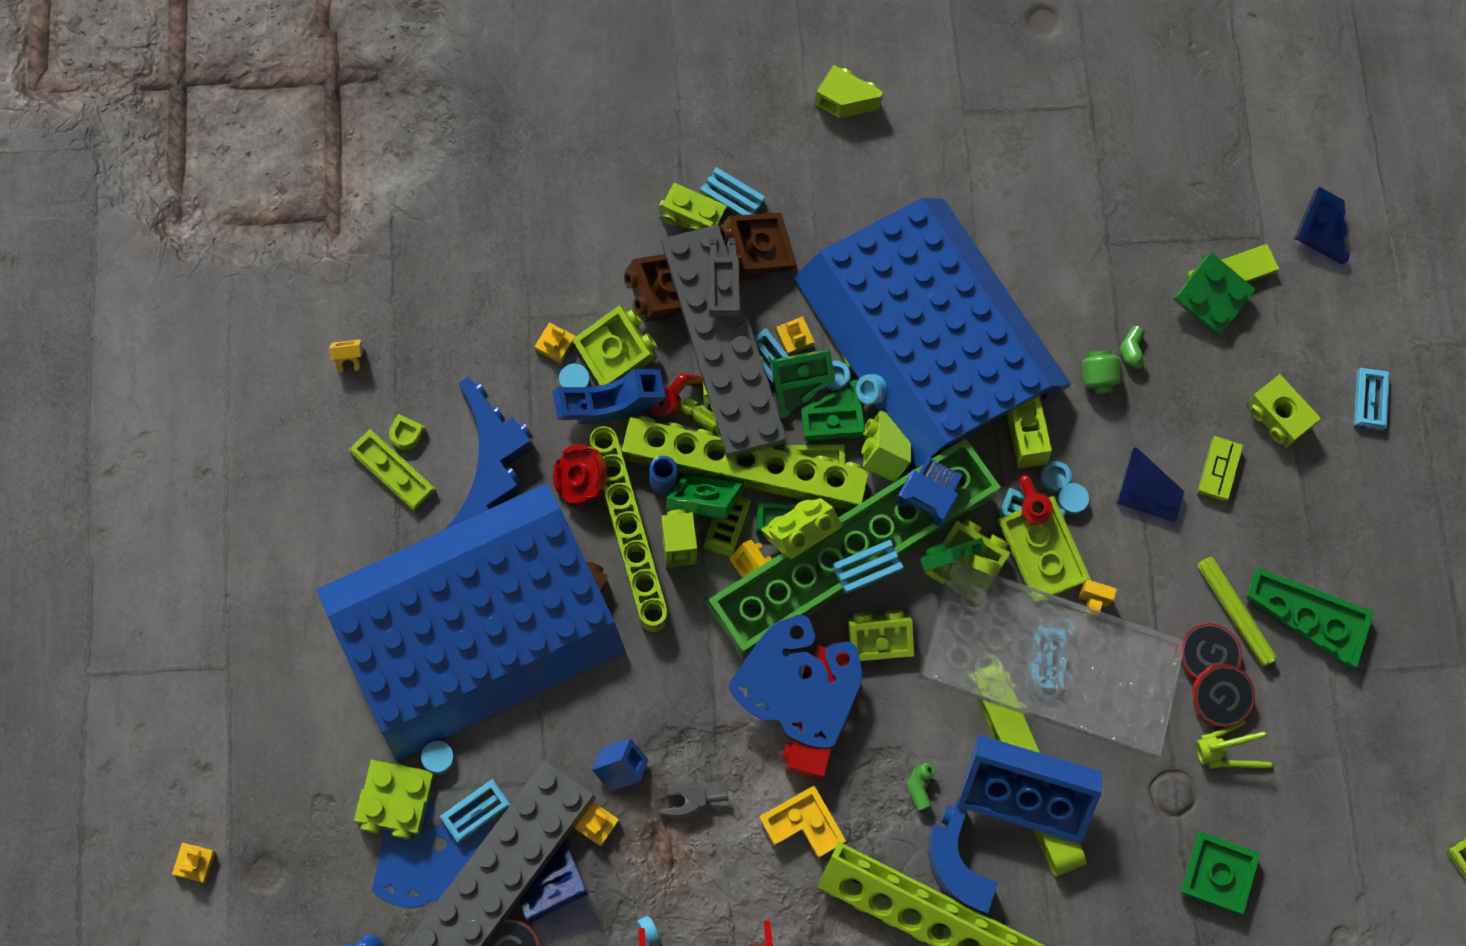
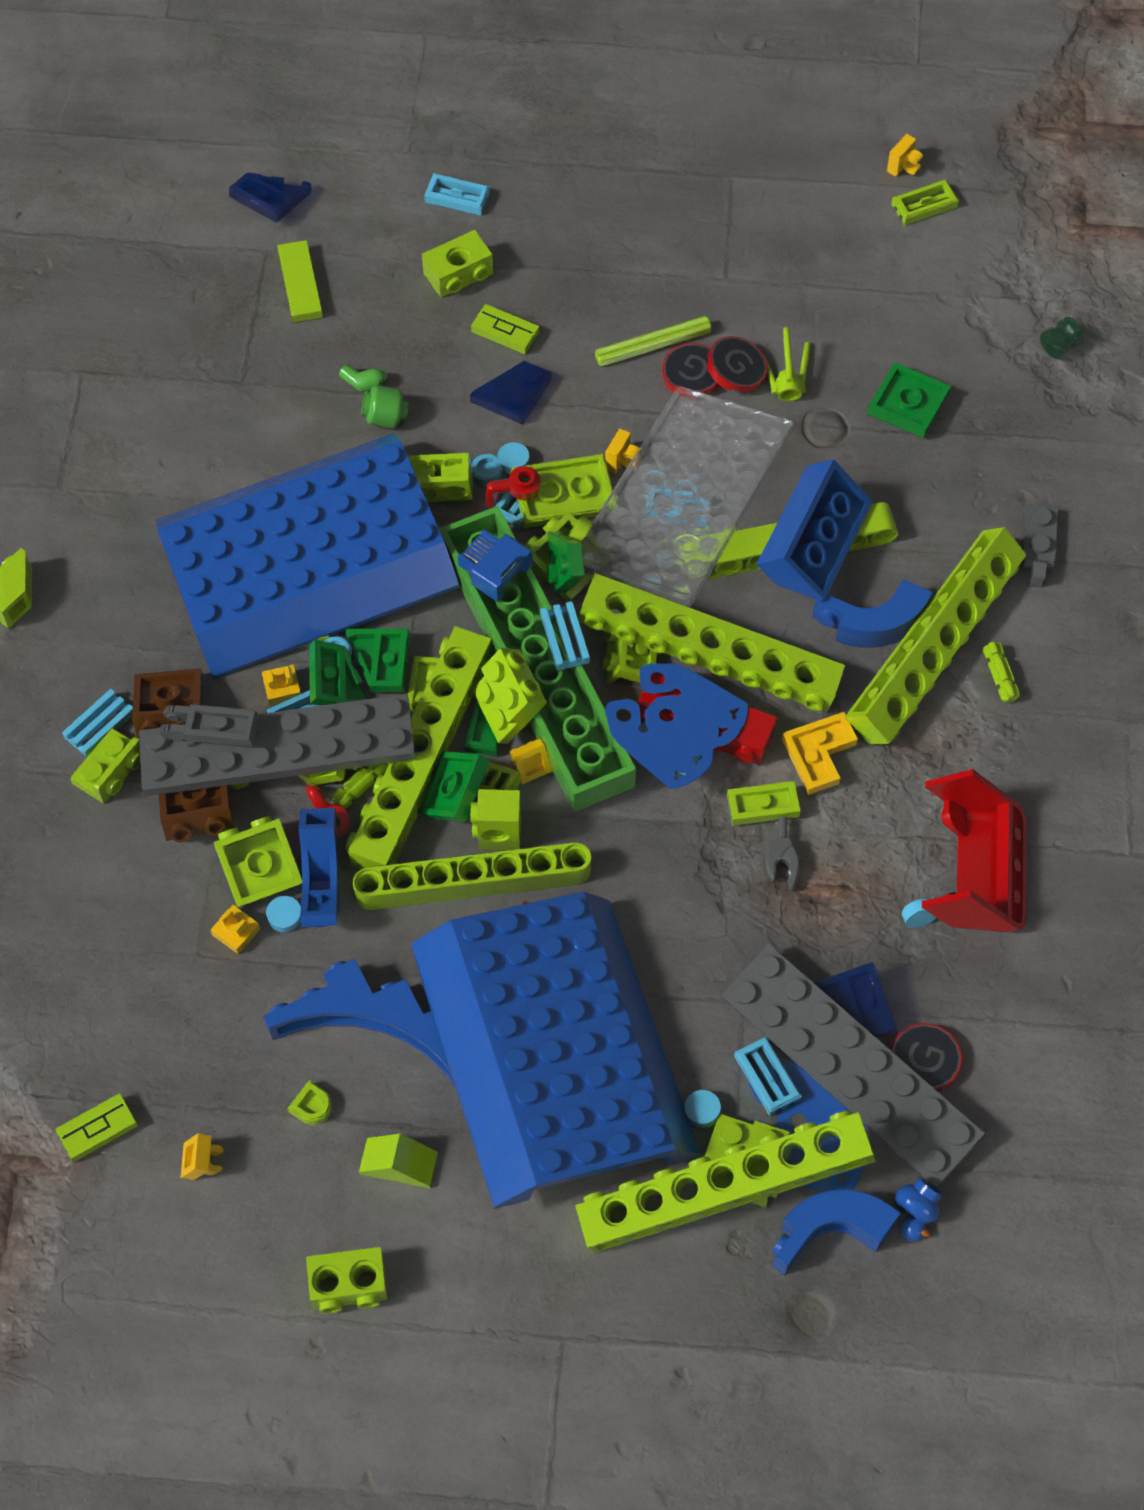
camera: 75 degrees left, 10 degrees down
(193, 863) = (791, 1393): yellow tile -> none
(261, 483) = (346, 1268): none -> lime brick
(353, 885) = (834, 1211): none -> blue arch
(362, 511) = (398, 1160): none -> lime slope
(366, 270) = (96, 1127): none -> lime tile
(392, 470) = (354, 1124): lime tile -> none
(403, 879) = (817, 1165): none -> lime brick
(580, 475) = (402, 913): red tile -> none
(597, 824) = (799, 950): yellow tile -> none
(620, 764) = (736, 918): blue panel -> none
(666, 466) = (422, 828): blue piece -> none
(740, 776) = (763, 803): none -> lime plate
(871, 389) = (363, 612): medium azure tile -> none
(885, 447) = (431, 608): lime slope -> none
(917, 595) = (726, 637): none -> lime brick
(918, 784) = (781, 632): bright green arm -> none
(1214, 294) = (322, 296): green plate -> none
(1315, 615) = (666, 279): green wing -> none

